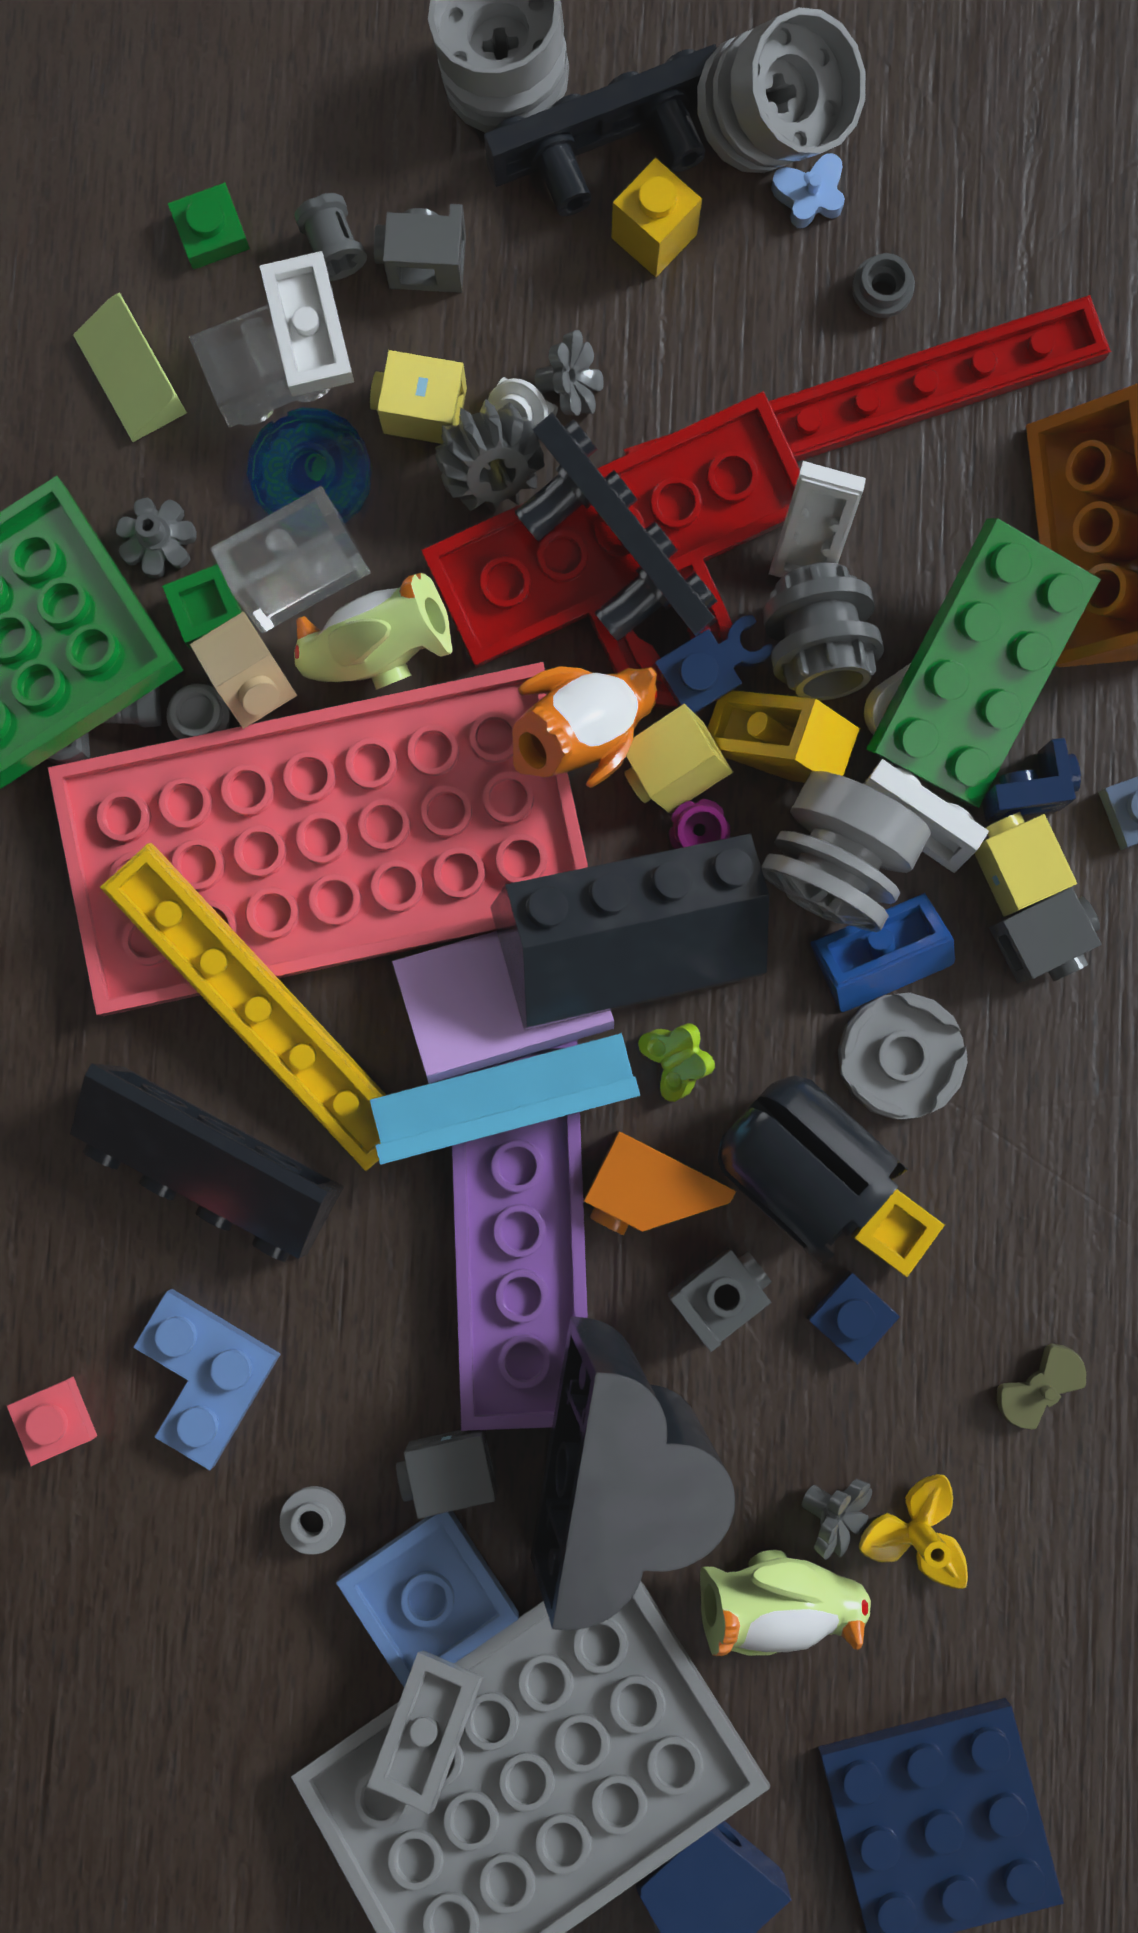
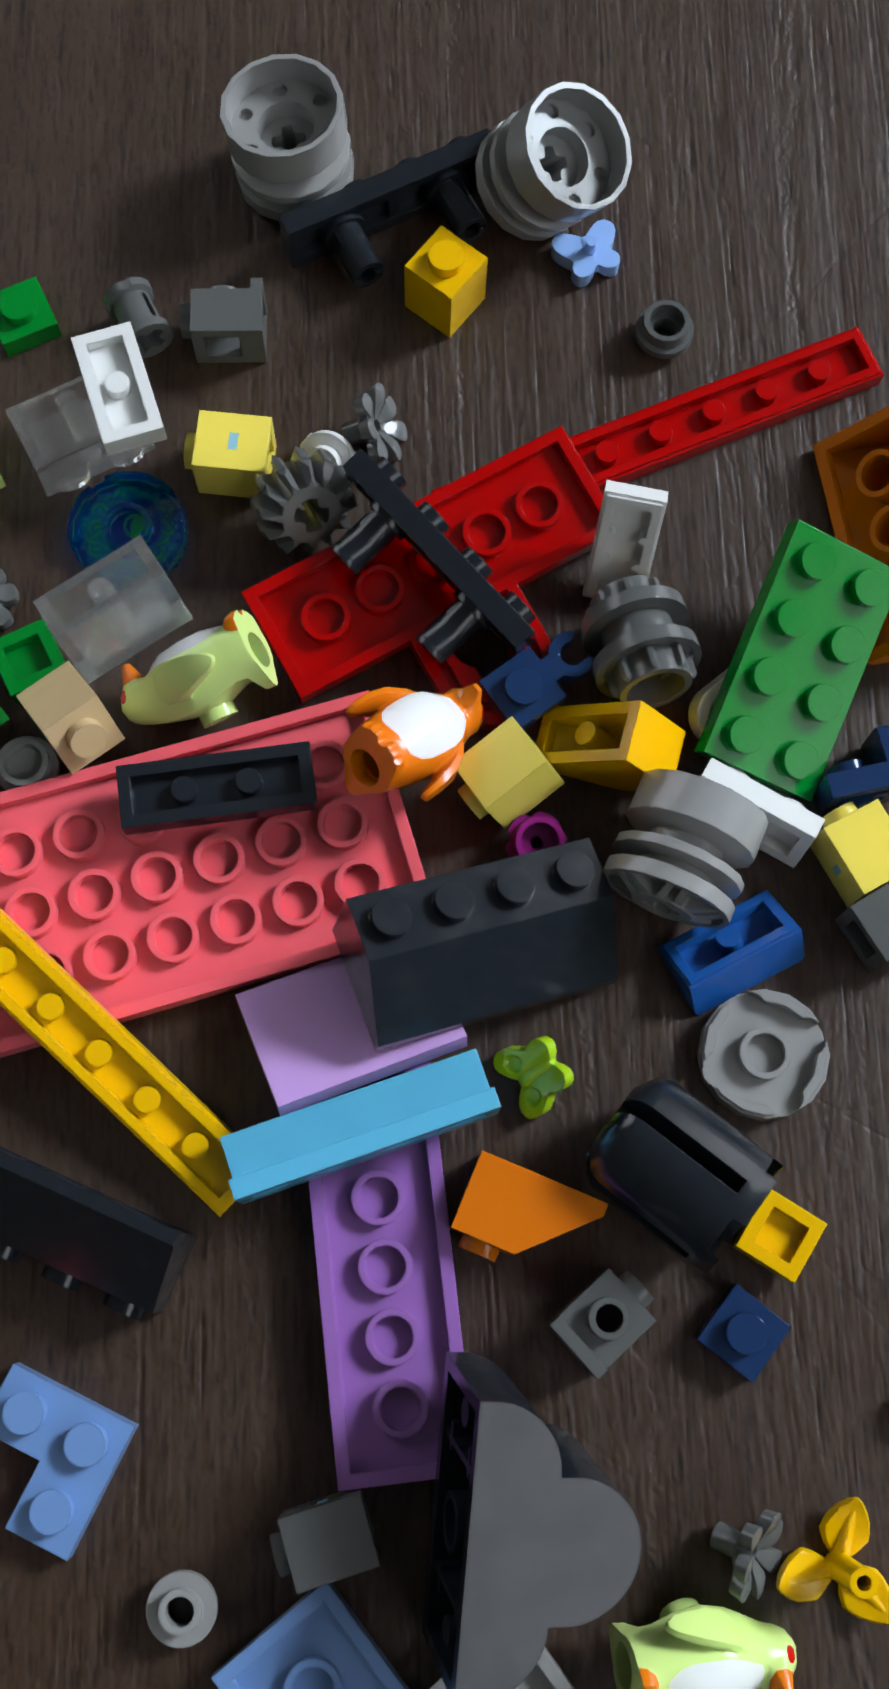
camera: 10 degrees left, 10 degrees down
(385, 755) = (216, 788): none -> black plate

